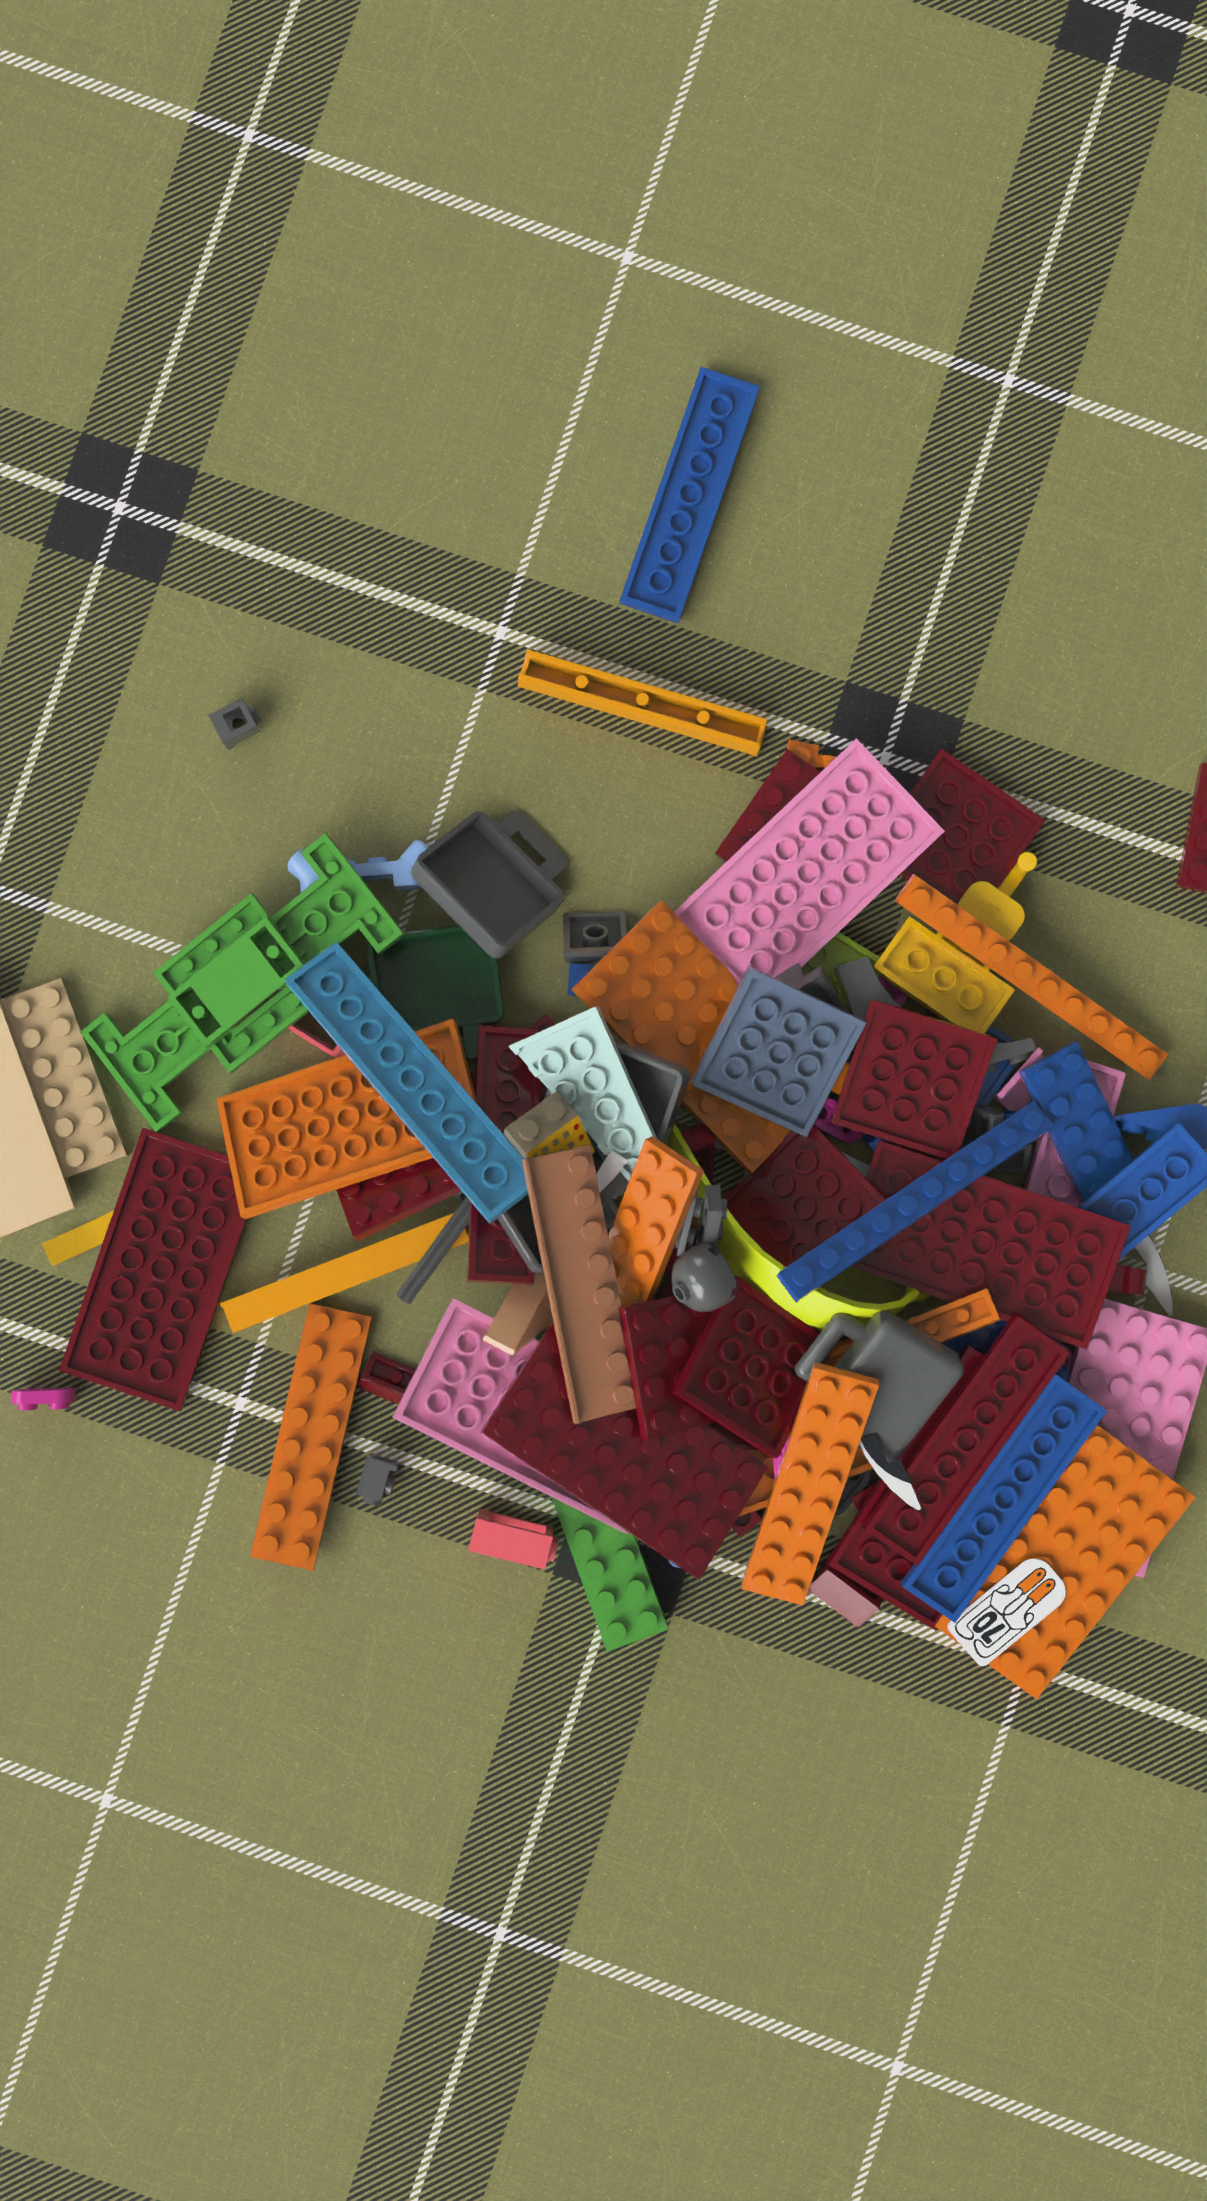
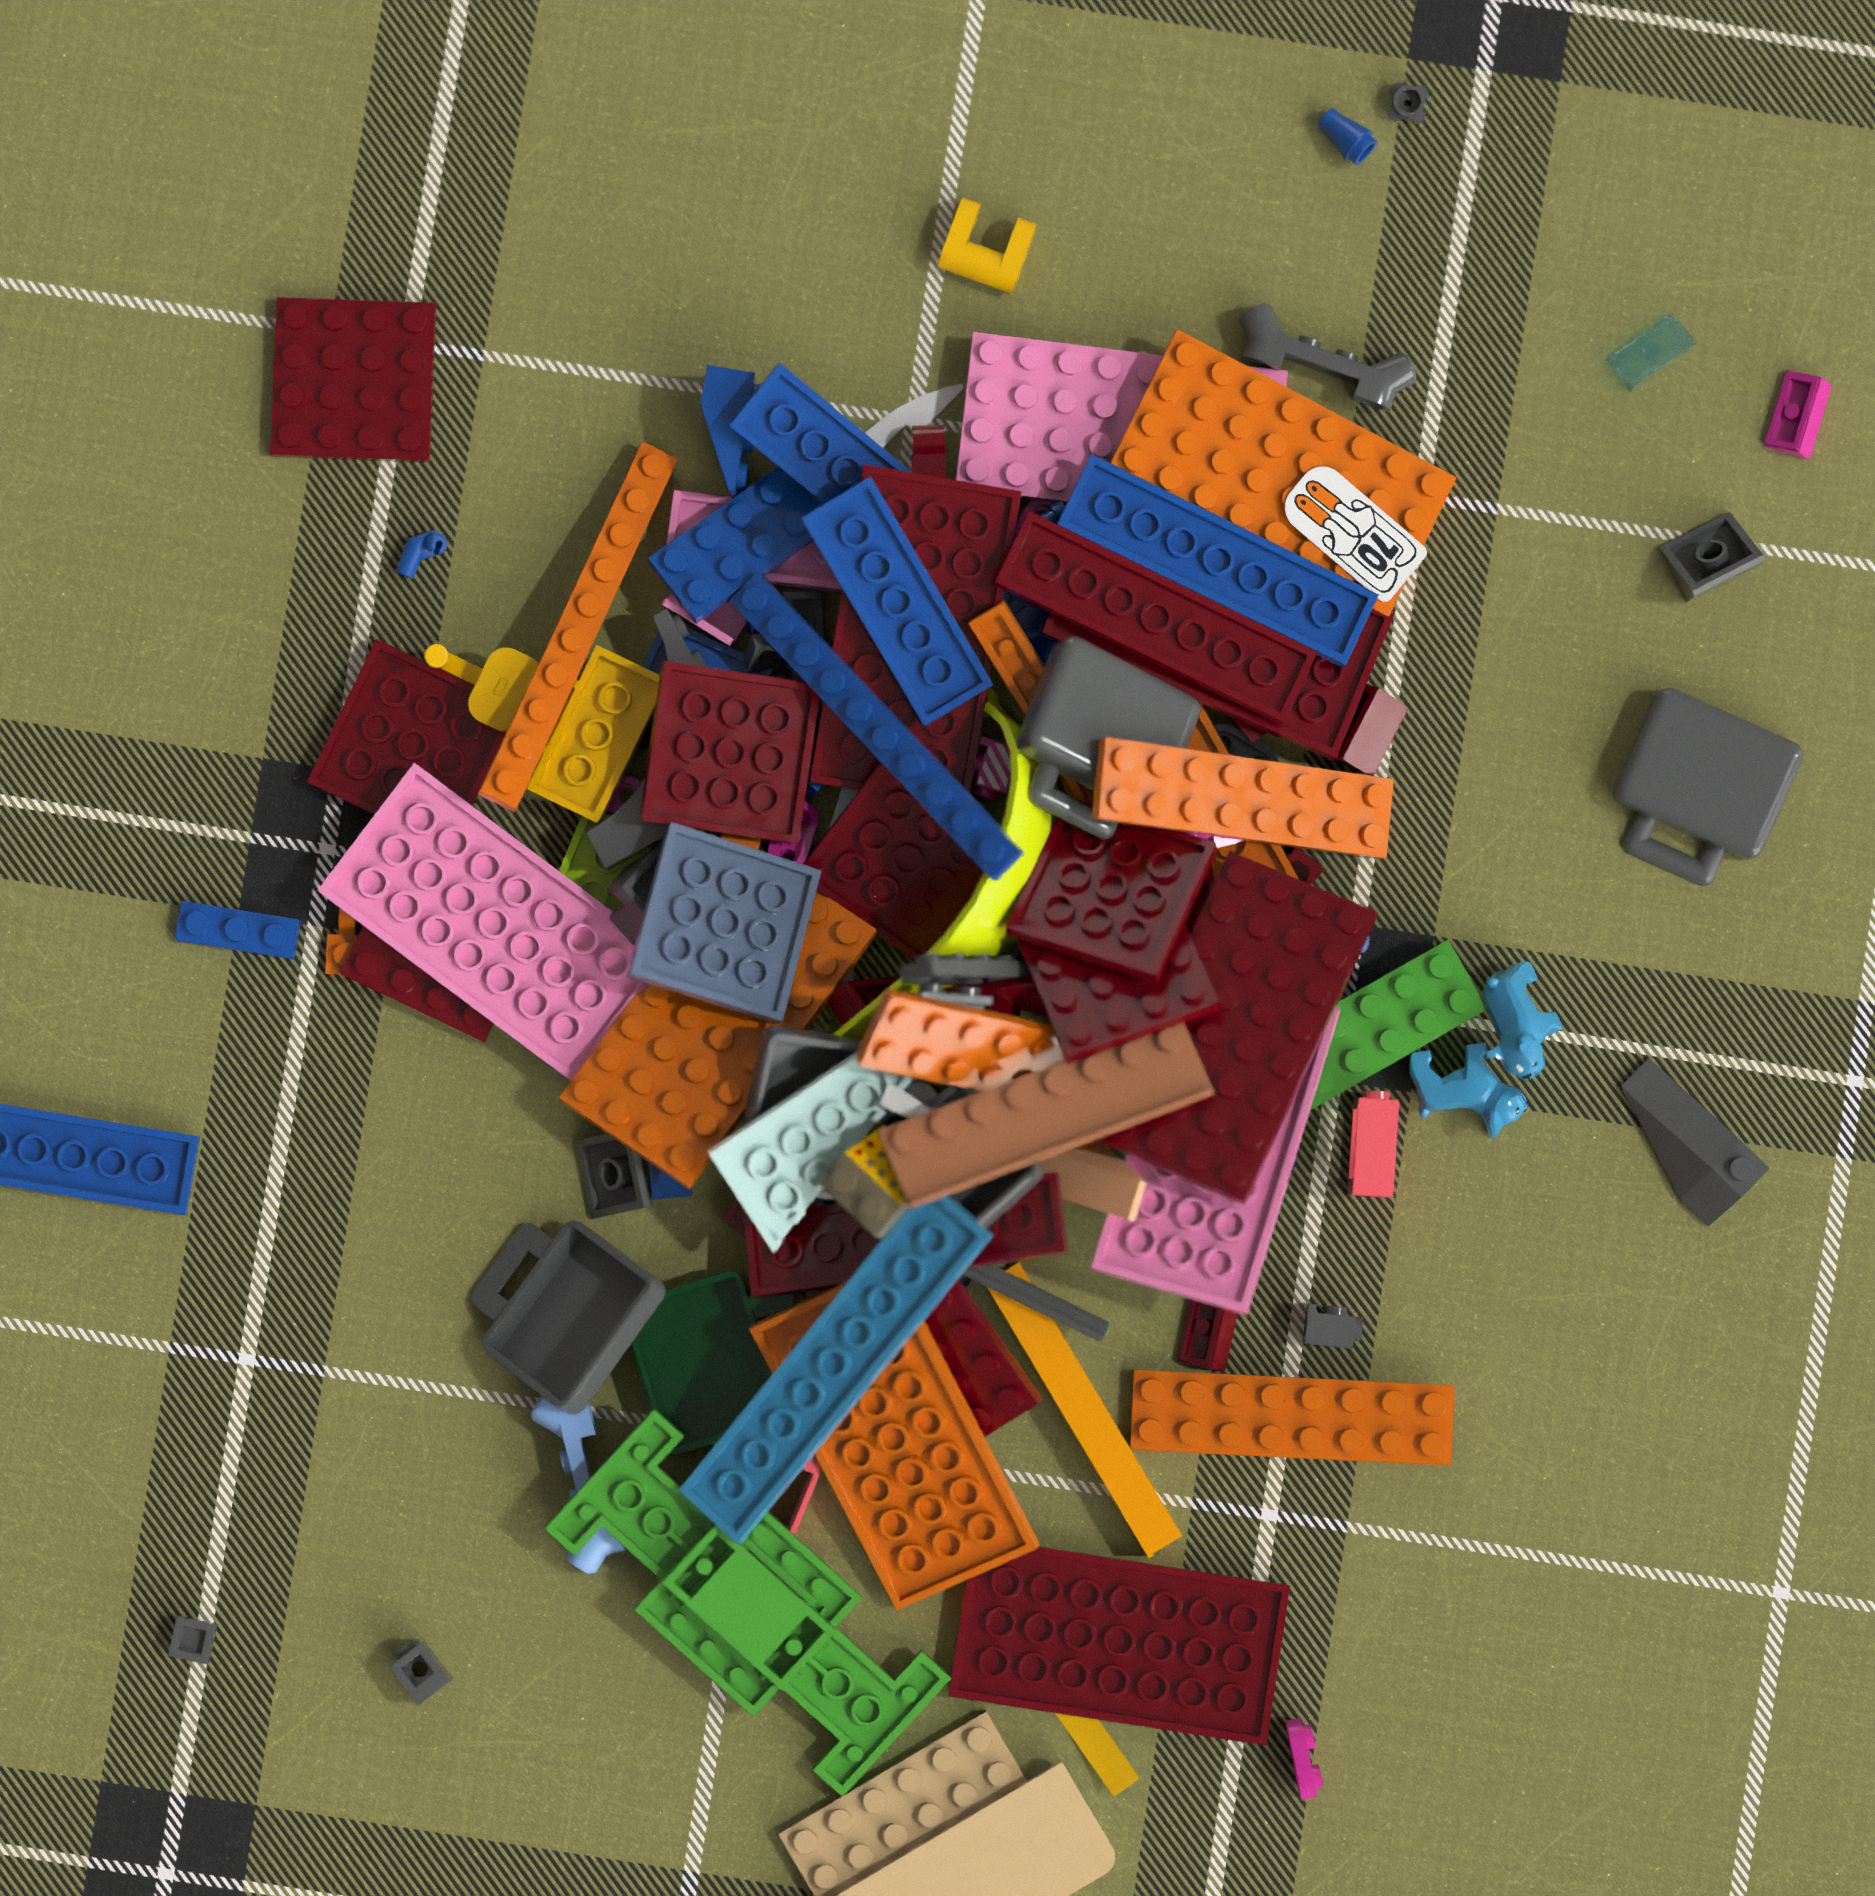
camera: 105 degrees left, 0 degrees up
(292, 554) = (192, 1639): none -> dark grey plate
(461, 1800) = (1697, 1151): none -> dark grey wedge
(547, 1622) = (1468, 1088): none -> dark azure animal
(592, 1674) = (1518, 1021): none -> dark azure animal
(642, 702) = (310, 1165): light orange tile -> none
(702, 1279) = (1016, 968): dark grey cylinder -> none
(761, 1858) = (1706, 779): none -> dark grey piece
(833, 678) = (238, 930): none -> blue plate
(863, 1287) = (992, 769): none -> dark pink brick
(891, 1473) = (1210, 702): sticker -> none
(940, 1895) = (1710, 556): none -> dark grey slope
(1015, 1233) = (896, 601): none -> blue plate
(1043, 1985) = (1798, 414): none -> dark pink slope
(1110, 866) = (420, 548): none -> blue arm
(1112, 1875) = (1651, 352): none -> clear light blue slope
(1123, 1645) = (1375, 383): none -> dark grey plate

